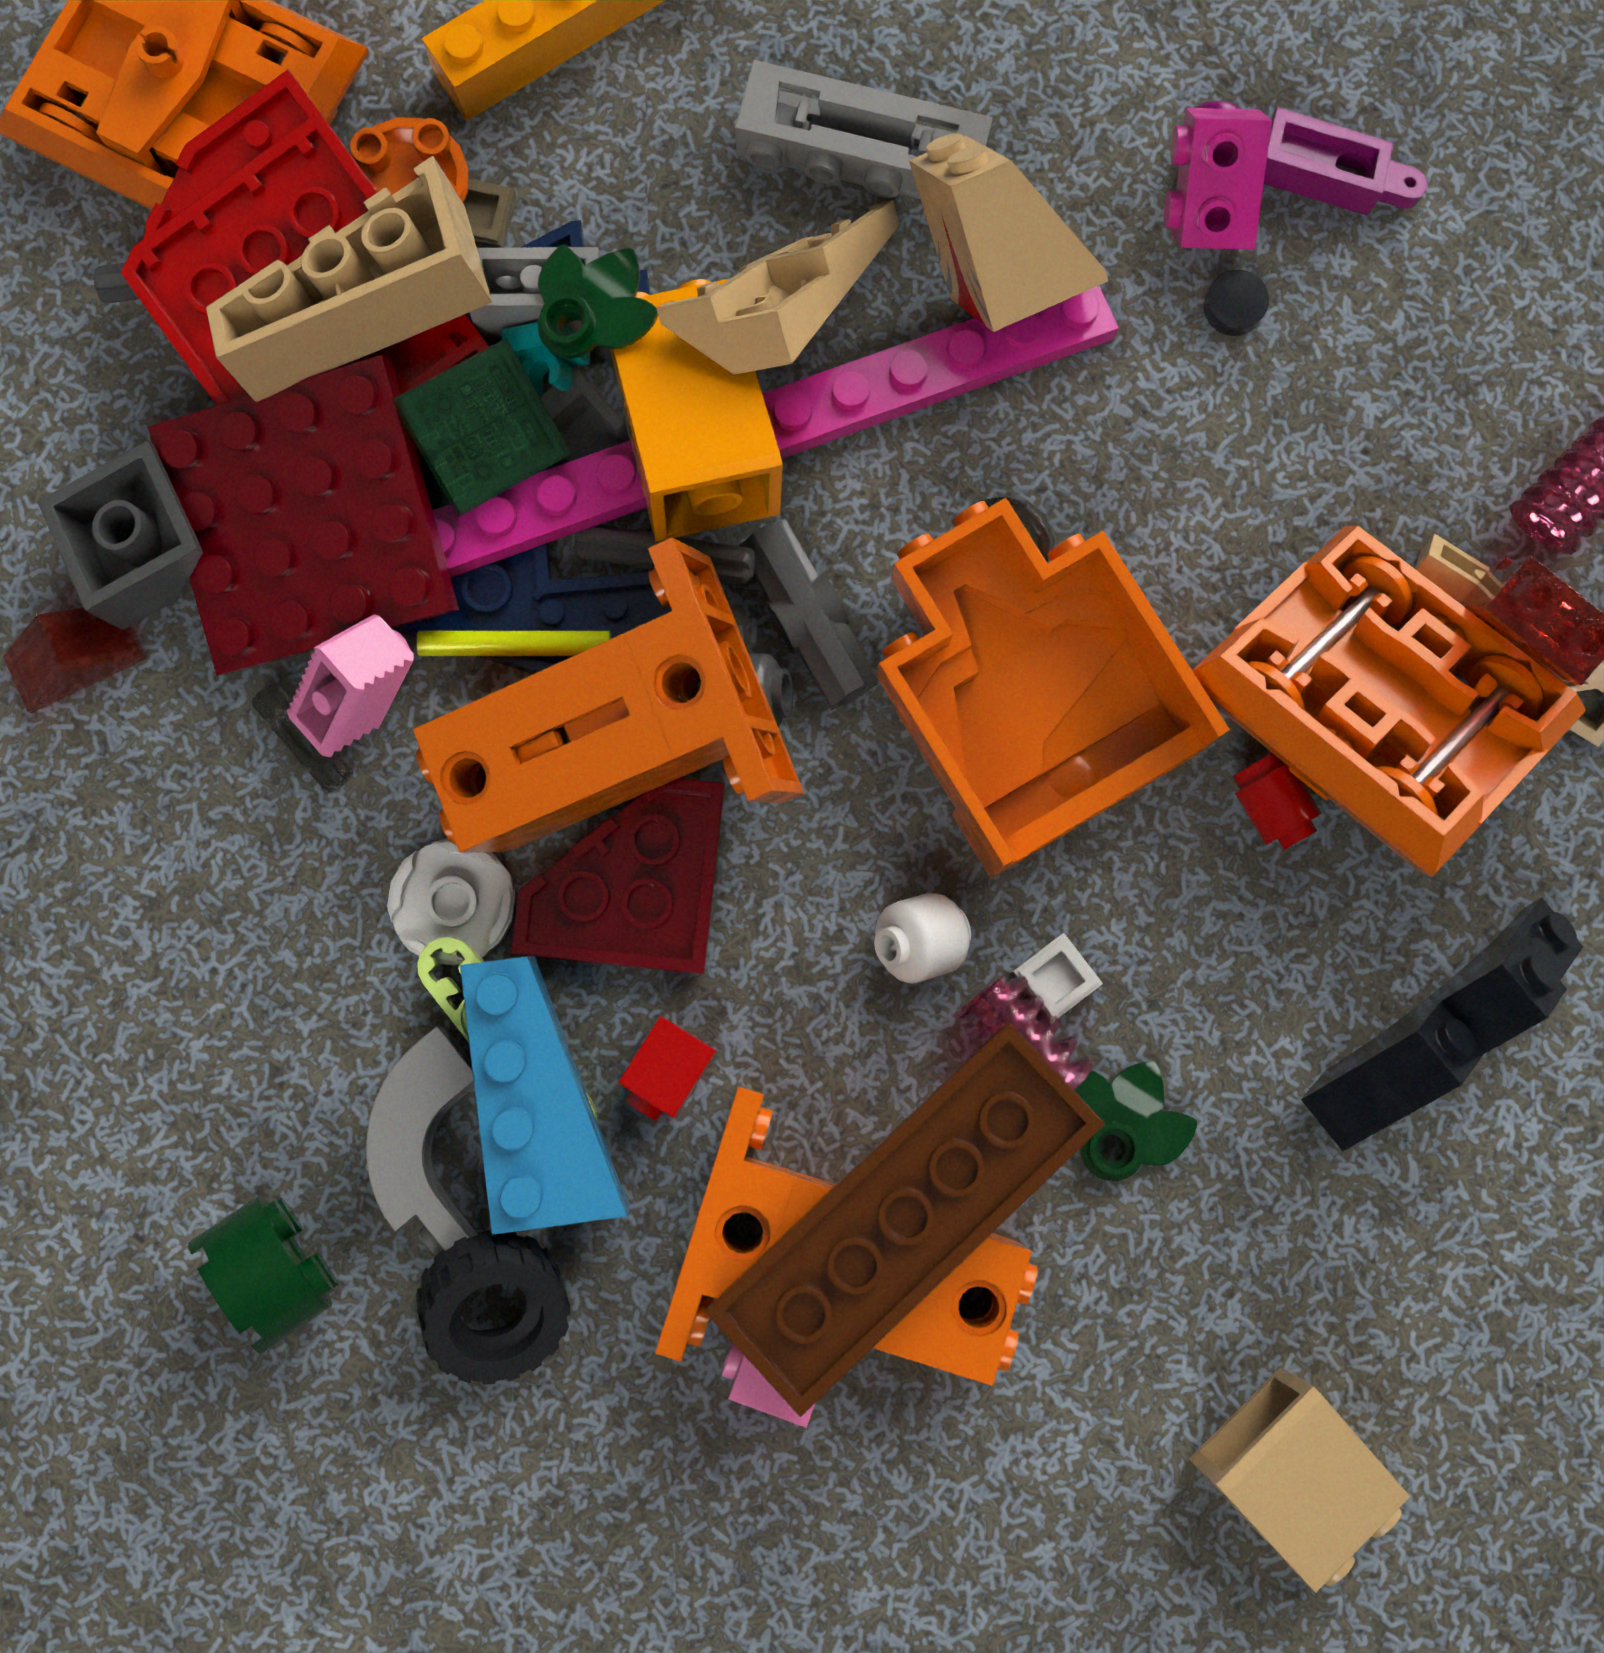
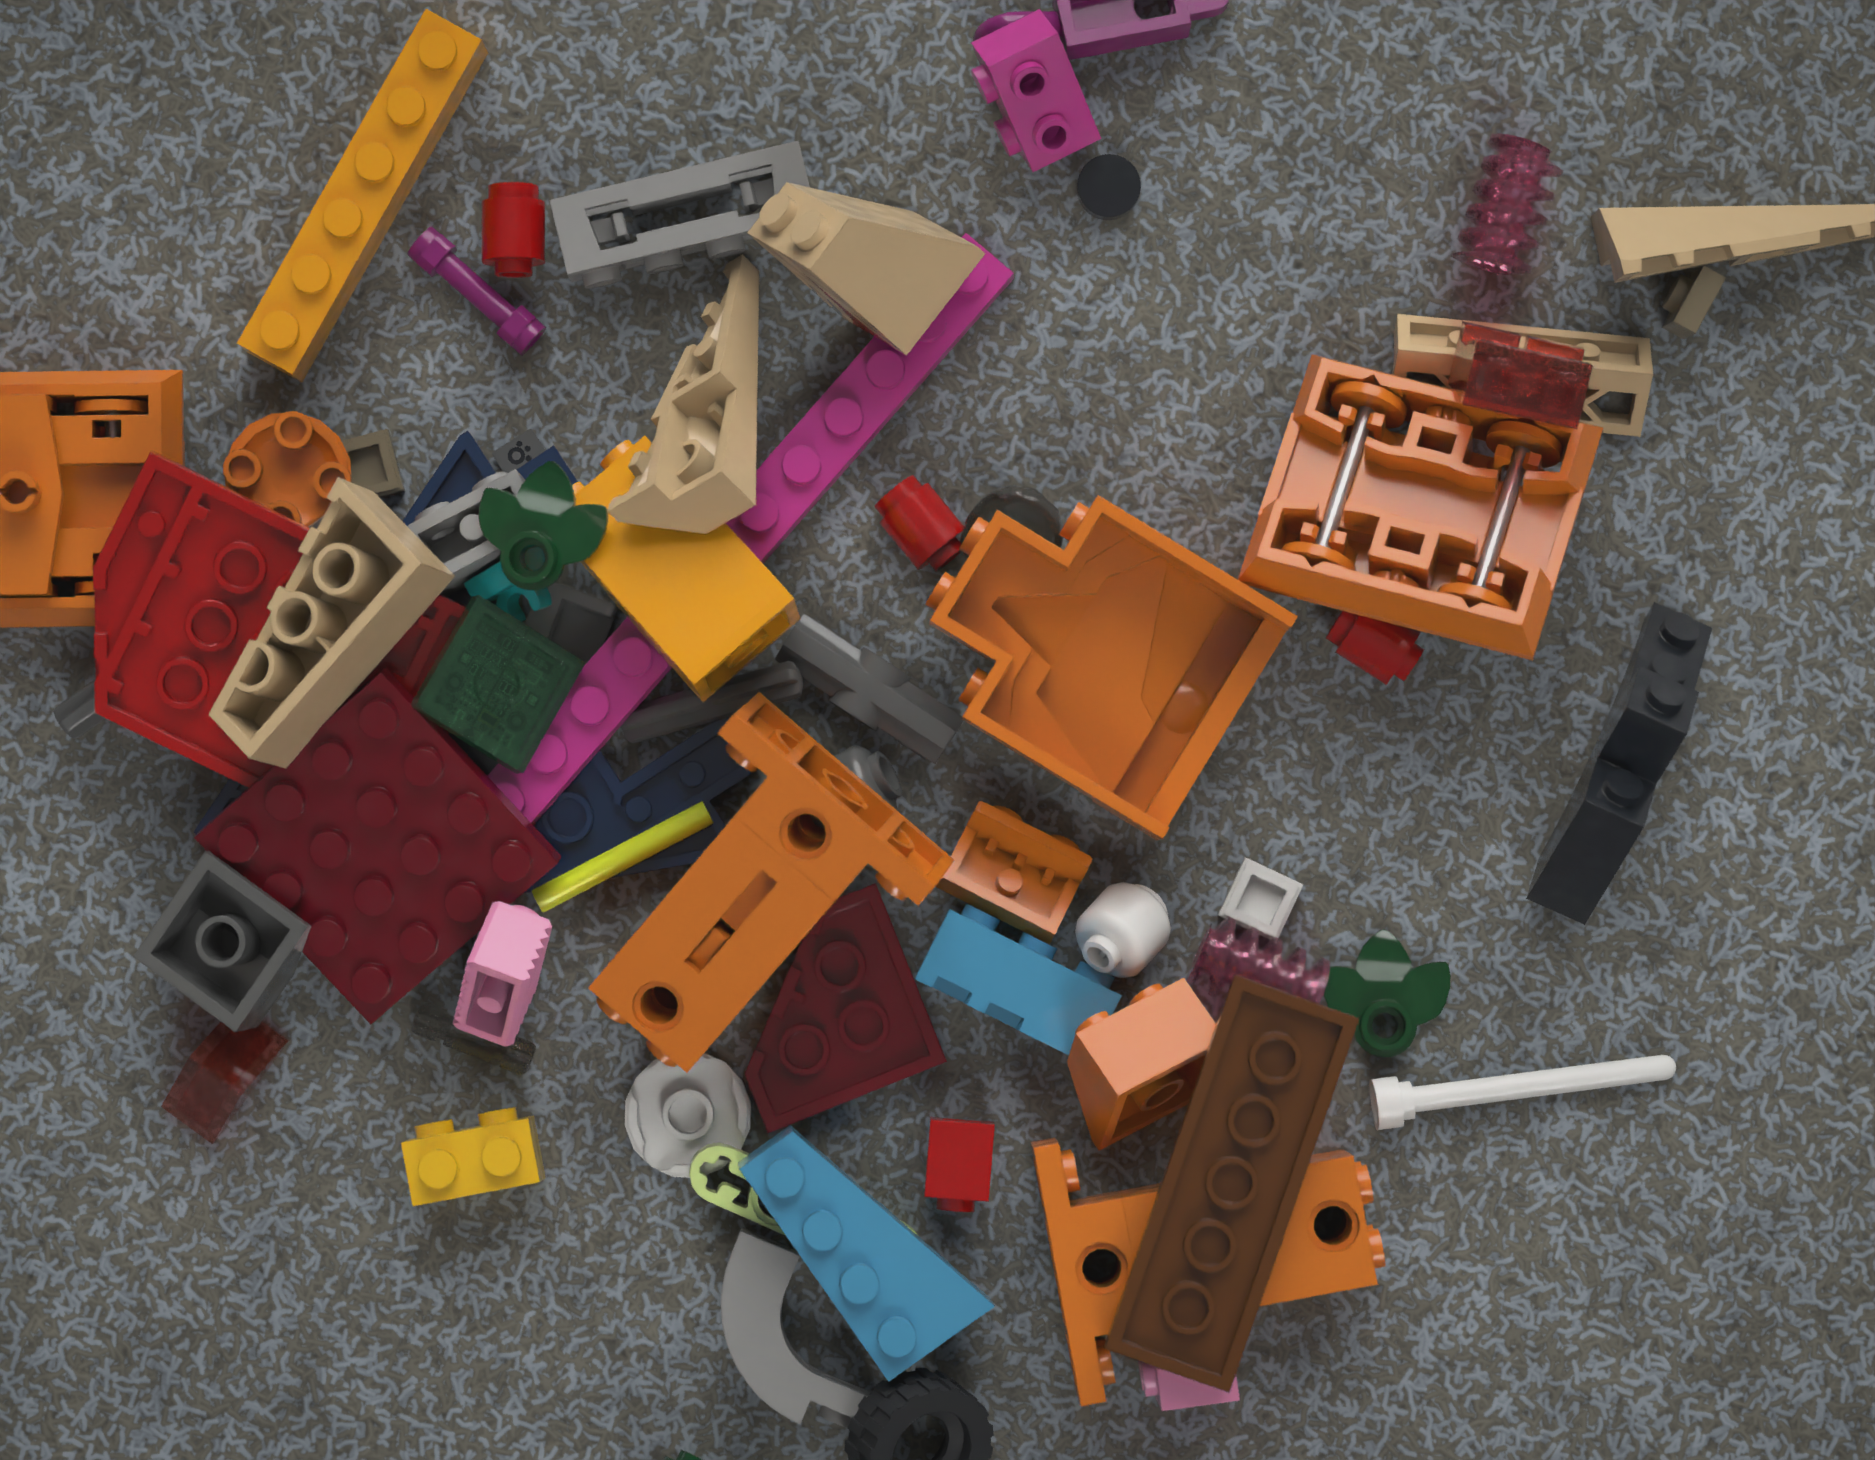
camera: 30 degrees left, 5 degrees up
(237, 839) = (474, 1159): none -> yellow brick
(636, 74) = (437, 255): none -> magenta bar
(710, 78) = (513, 229): none -> red brick
(802, 933) = (1014, 979): none -> dark azure wedge
(853, 836) = (1015, 871): none -> orange bracket
(876, 1060) = (1139, 1060): none -> orange slope
(926, 493) = (920, 524): none -> red brick
(1089, 1223) = (1398, 1101): none -> white piece
(1301, 1478) = (1686, 1226): tan slope -> none

